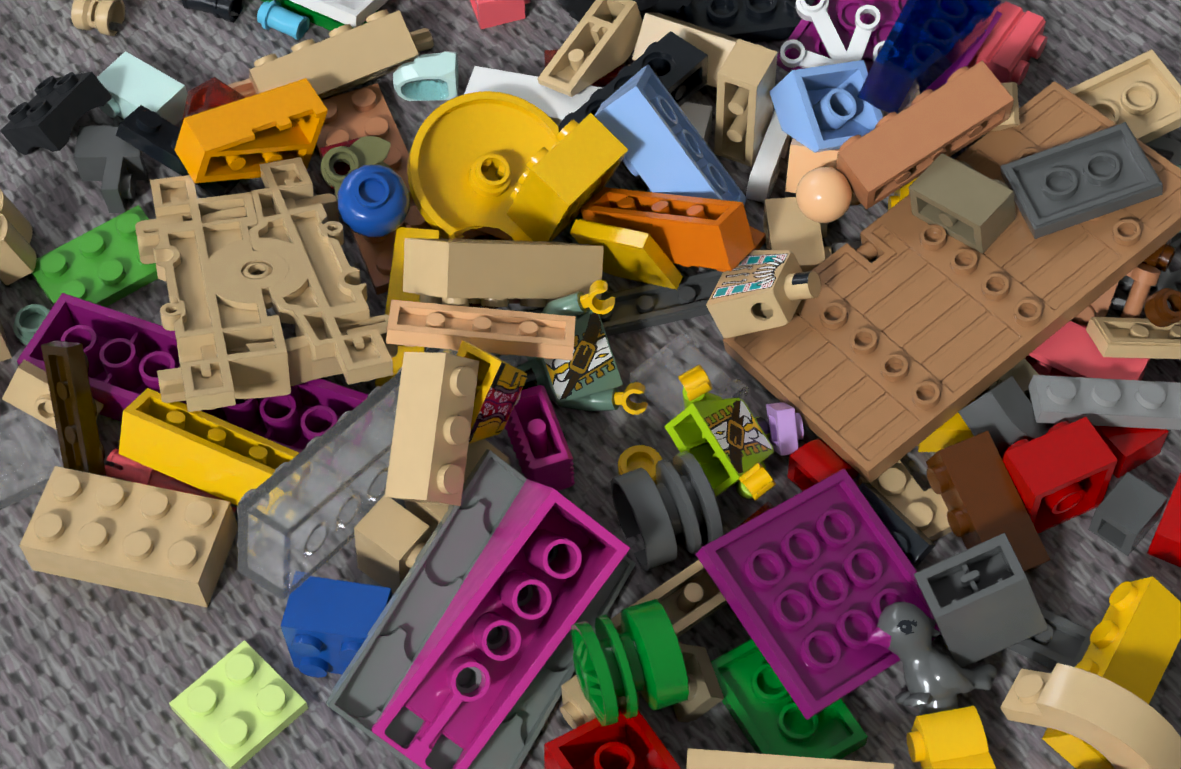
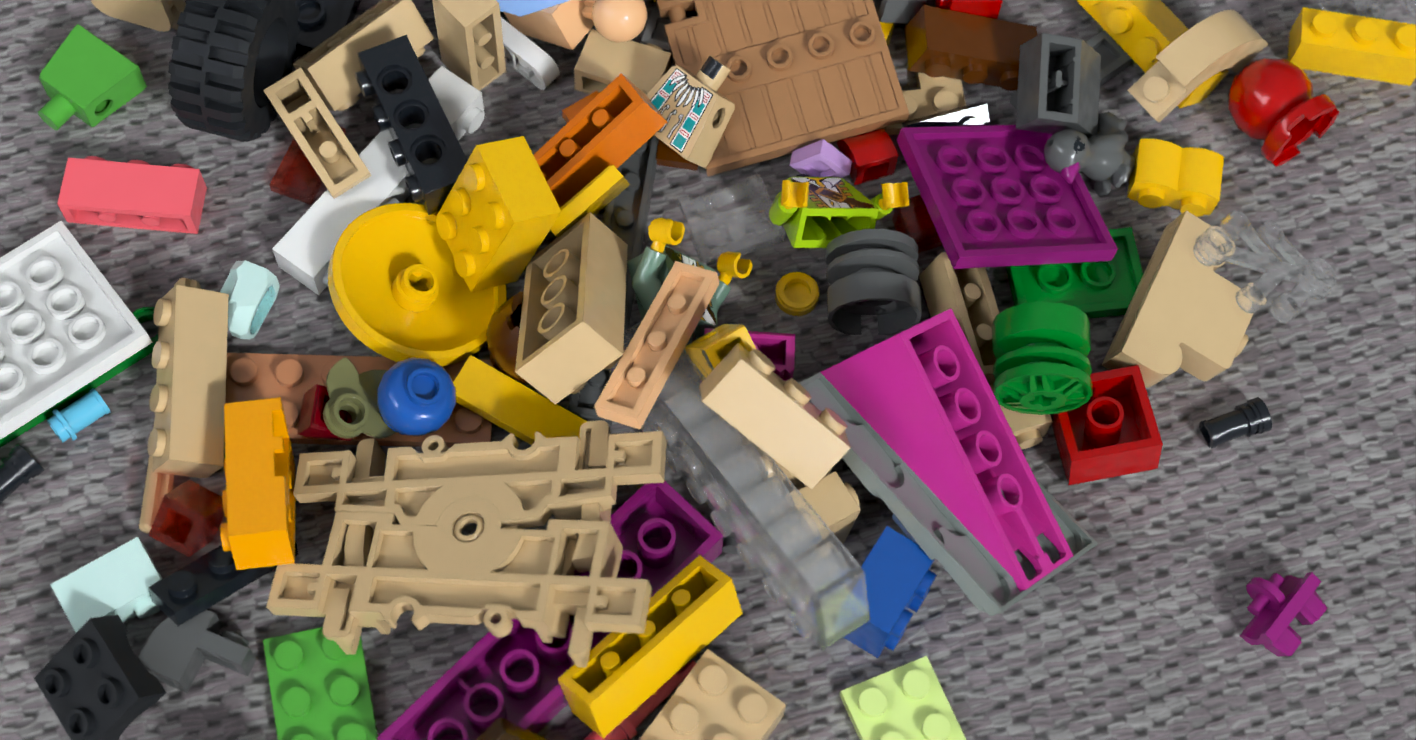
camera: 75 degrees left, 10 degrees up
(664, 142) = (483, 115): light blue slope -> none

